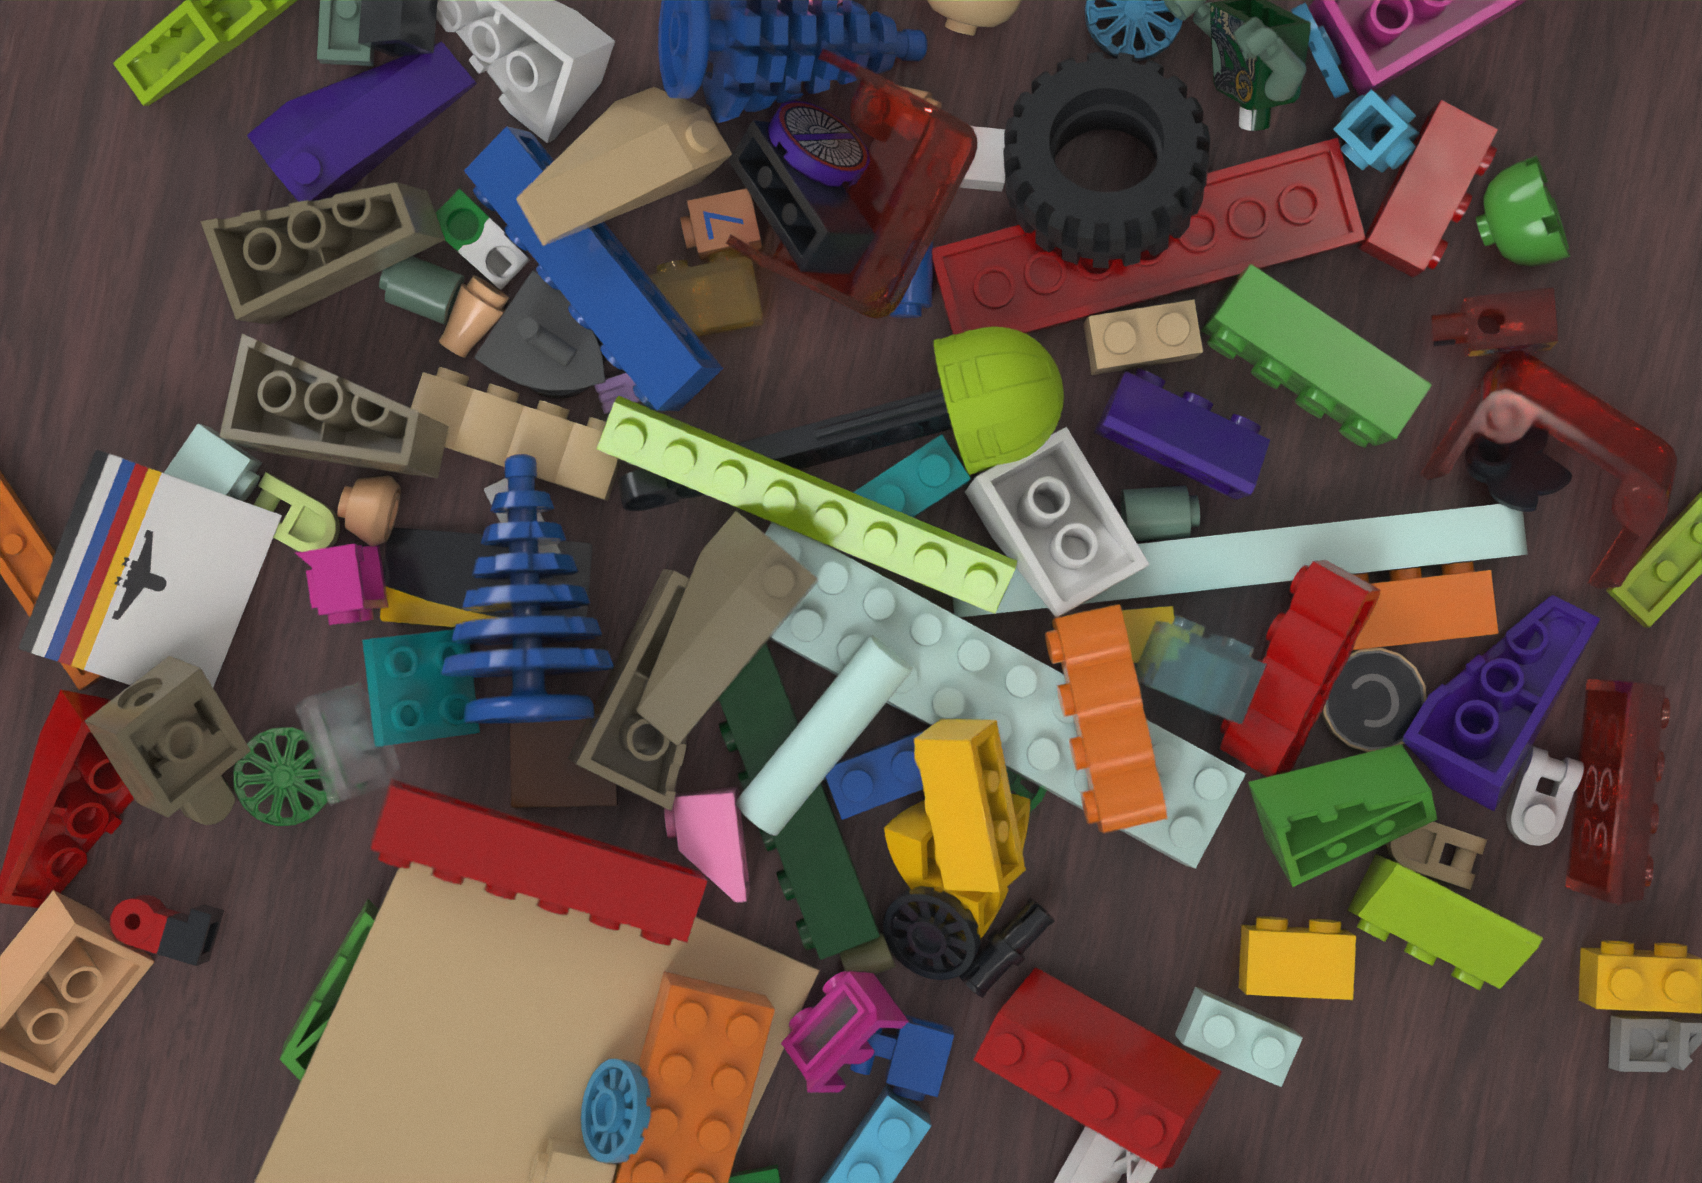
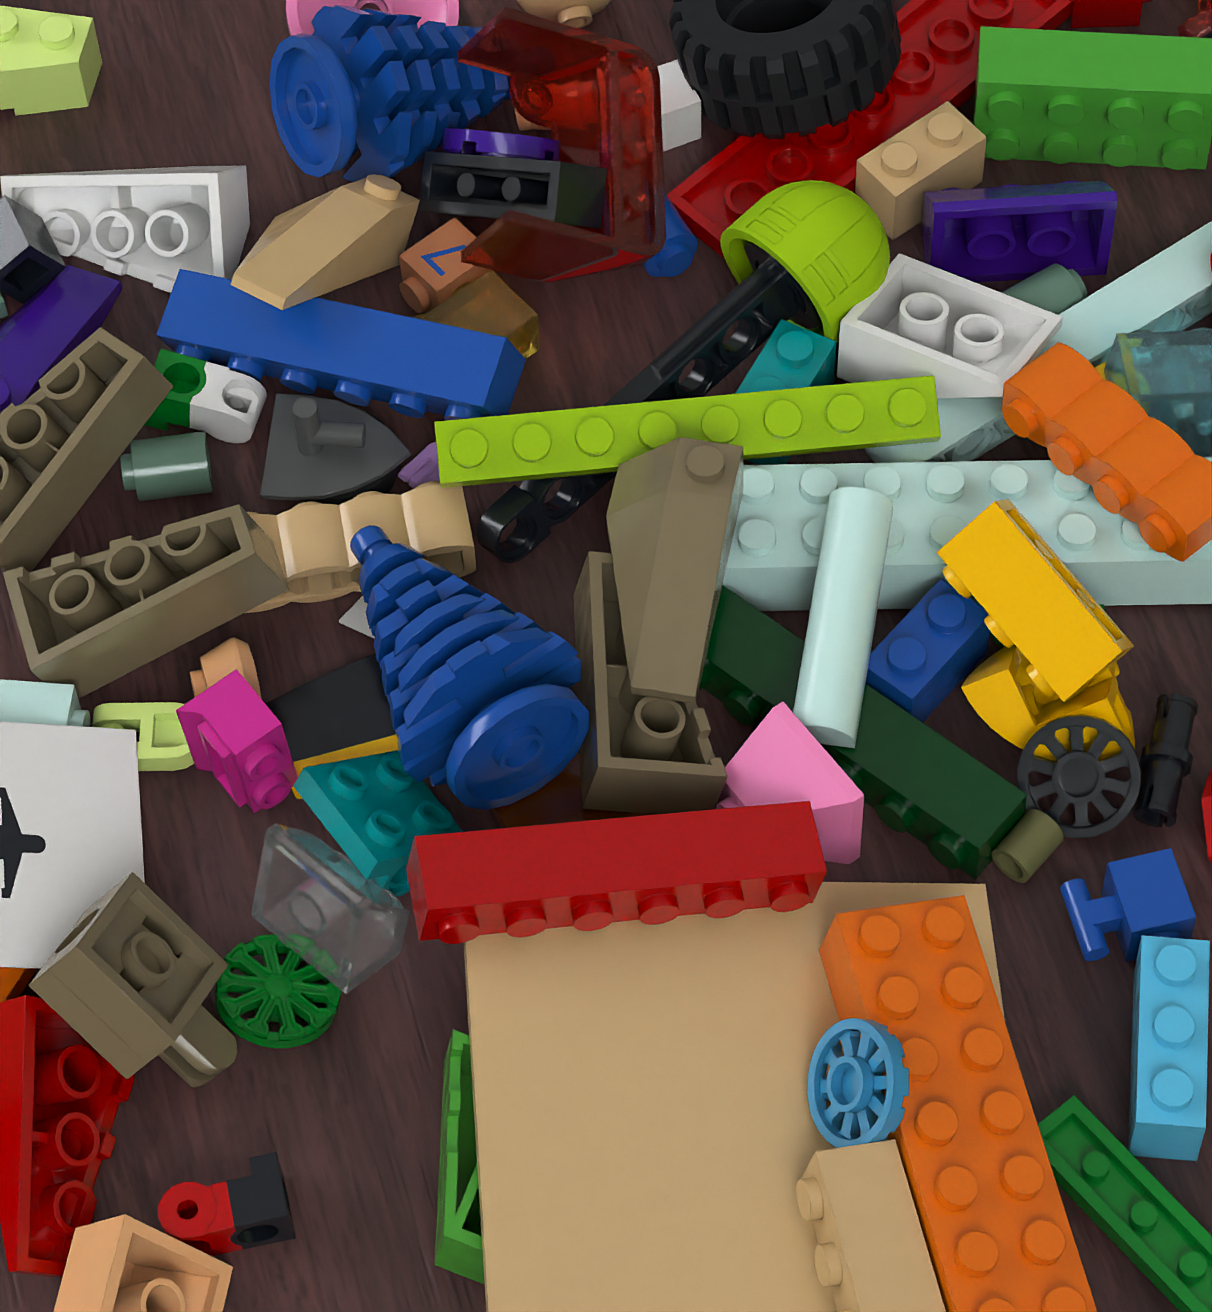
camera: 25 degrees left, 30 degrees down
(473, 315) = (236, 463): light nougat cone -> none
(839, 1028) = (1044, 905): dark pink window -> none

